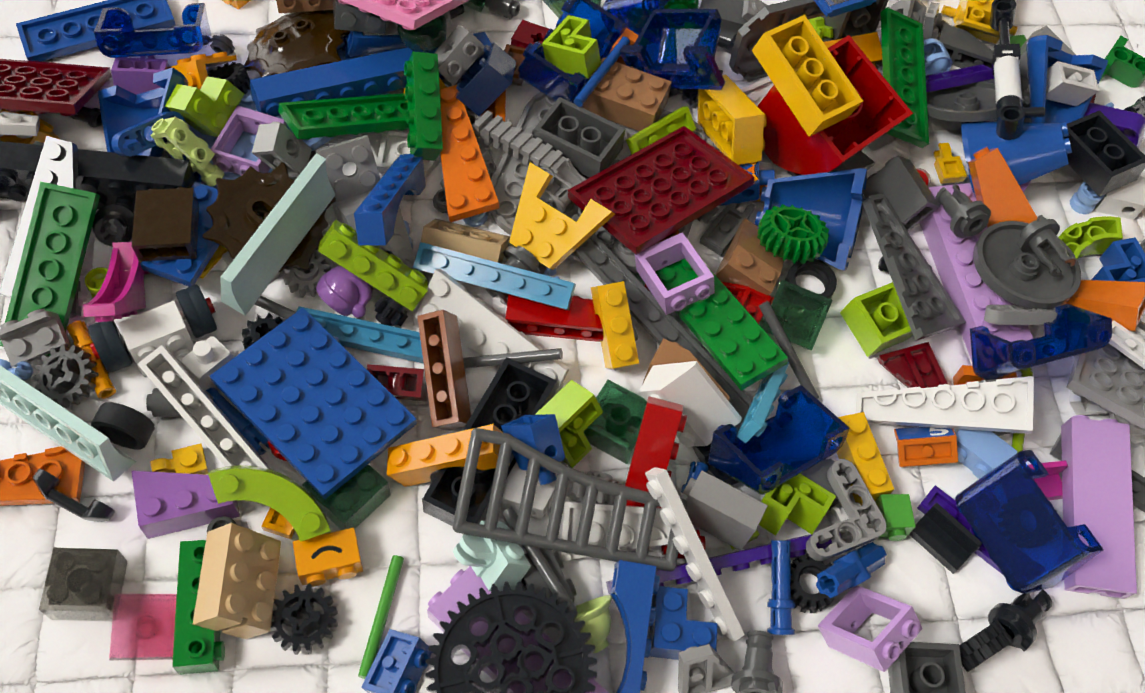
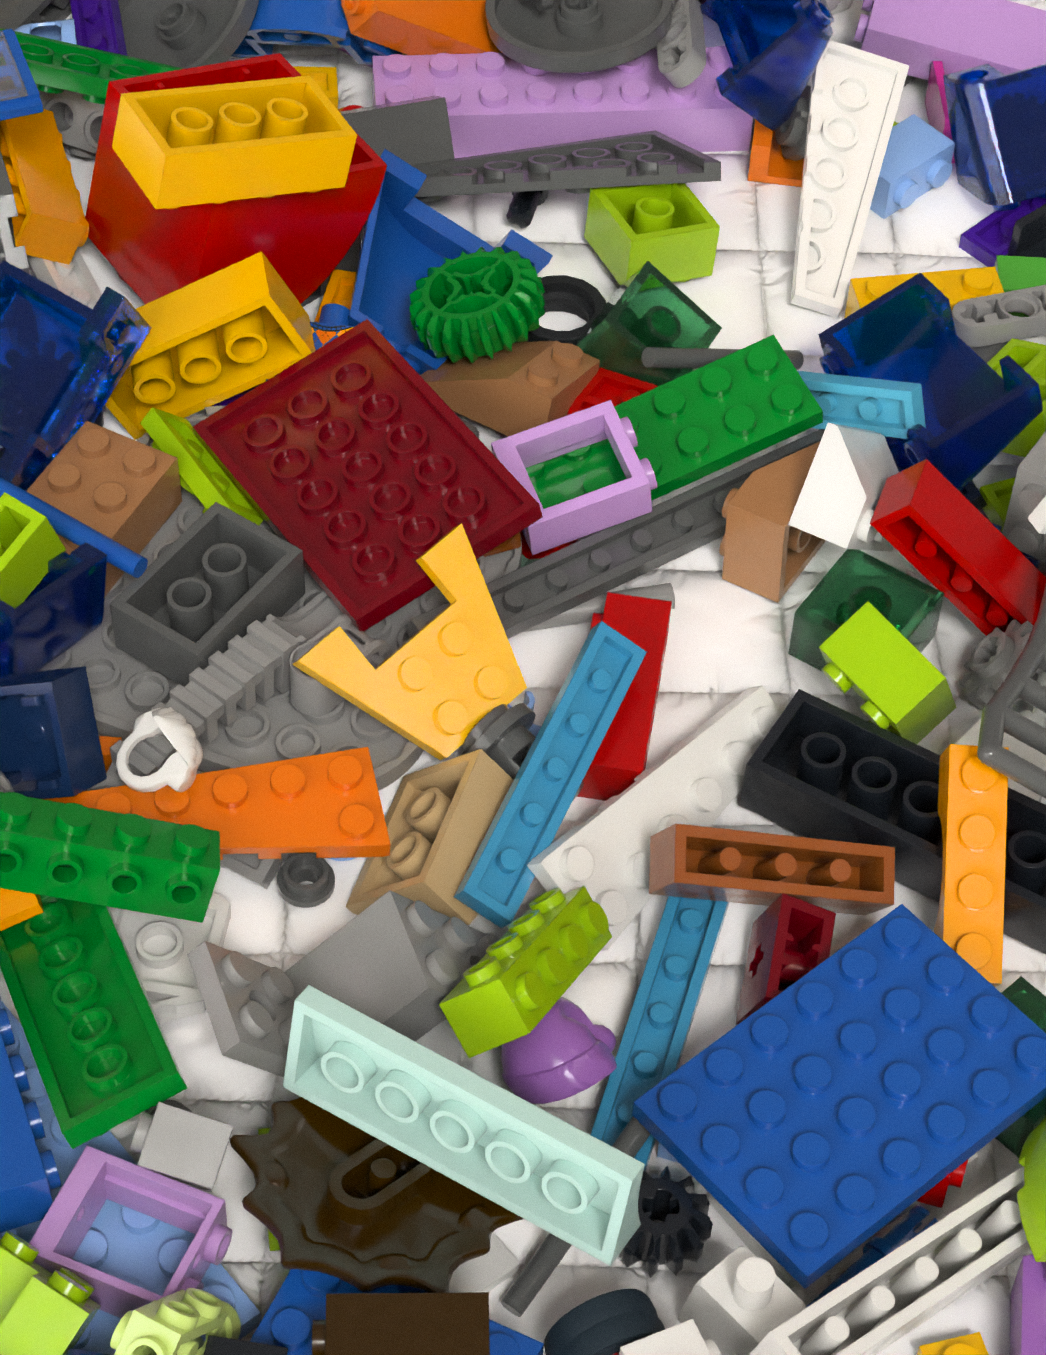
camera: 80 degrees left, 10 degrees down
(379, 210) = (457, 898): blue arch -> none
(390, 312) = (606, 983): black gear -> none
(480, 122) = (179, 769): none -> white piece
(520, 357) = (736, 748): dark grey bar -> none
(541, 434) = (942, 707): blue torso -> none
(618, 336) = (636, 577): yellow arch -> none
(914, 366) = (747, 211): dark red wing -> none
(926, 446) = (897, 225): orange panel -> none
(967, 215) = (463, 60): dark grey piece -> none

